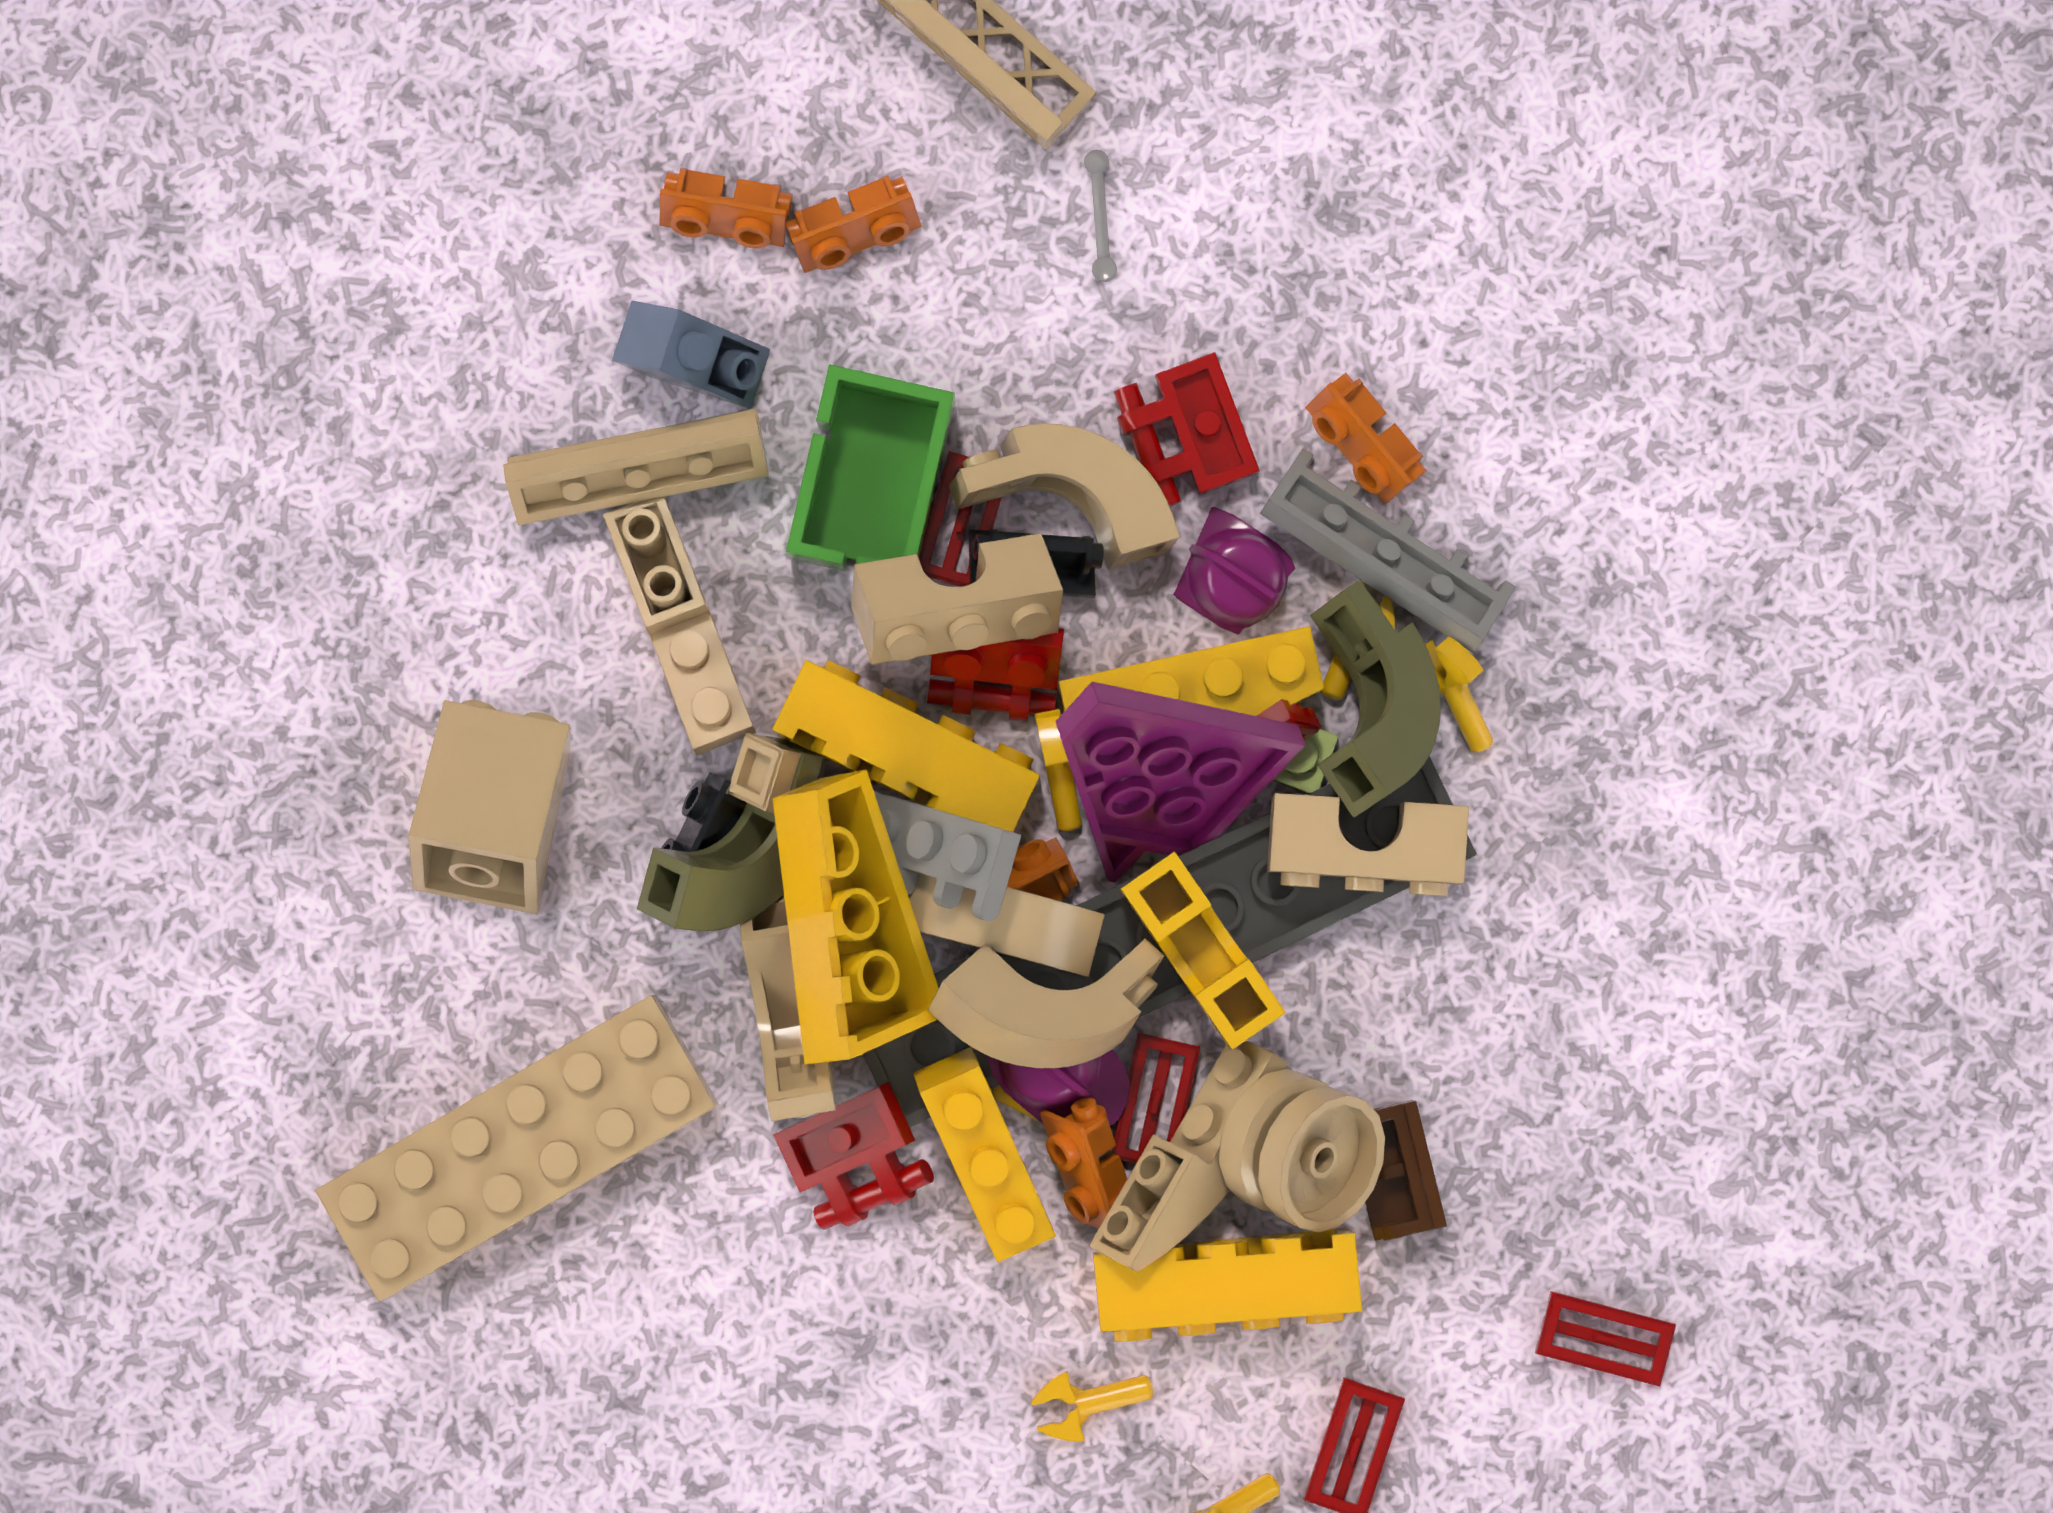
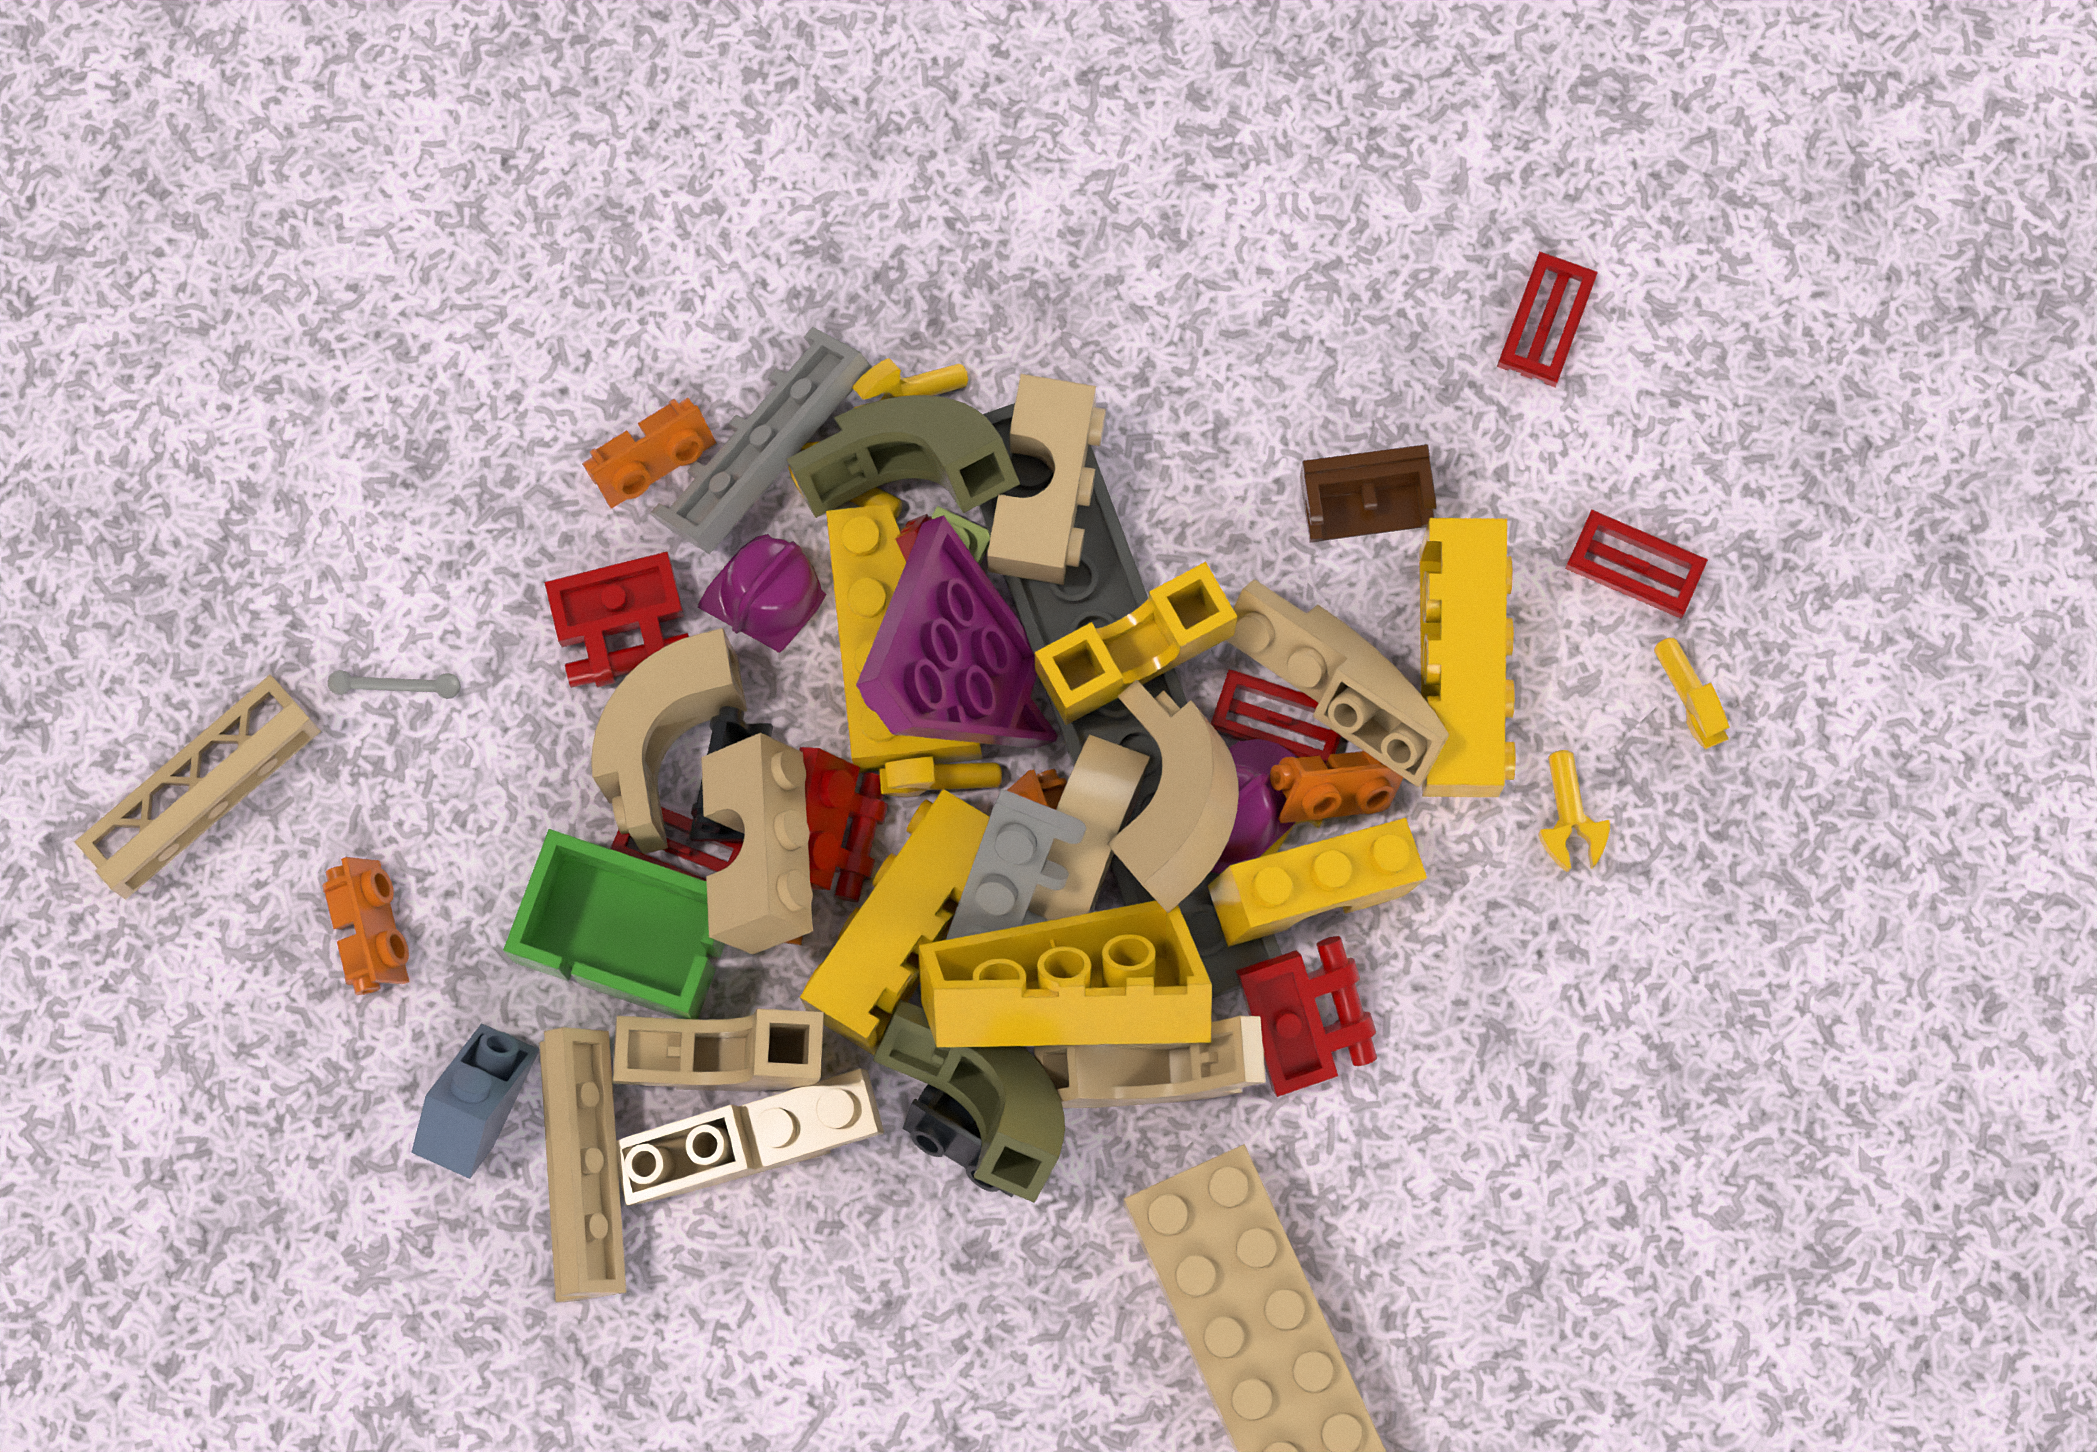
camera: 80 degrees left, 10 degrees down
(489, 805) = (912, 1351): tan slope -> none
(695, 207) = (327, 1081): orange hinge -> none
(757, 586) = (738, 1054): none -> tan arch
(763, 771) = (909, 1061): tan tile -> none
(1302, 1150) = (1341, 569): tan wheel -> none

